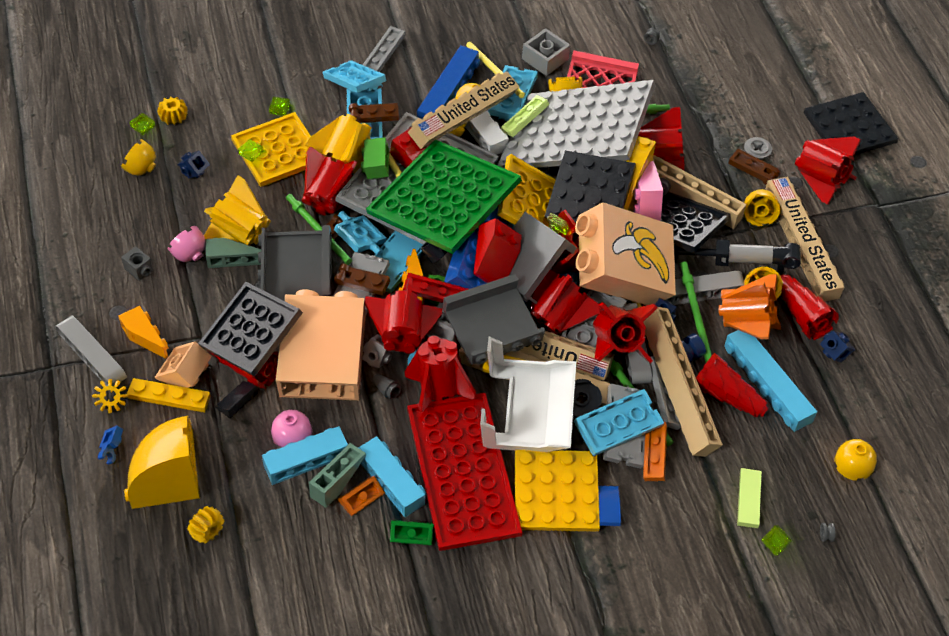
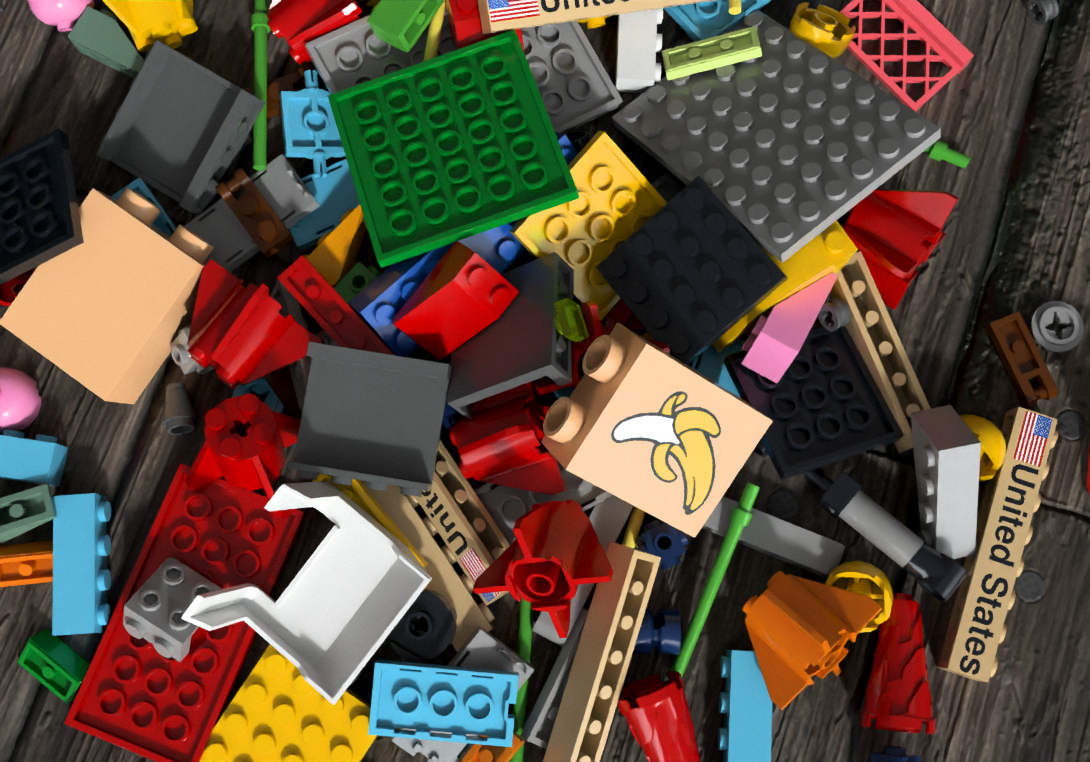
camera: 35 degrees right, 25 degrees up
(456, 464) = (159, 605): none -> light grey bracket
(761, 215) = (946, 480): none -> light grey wedge

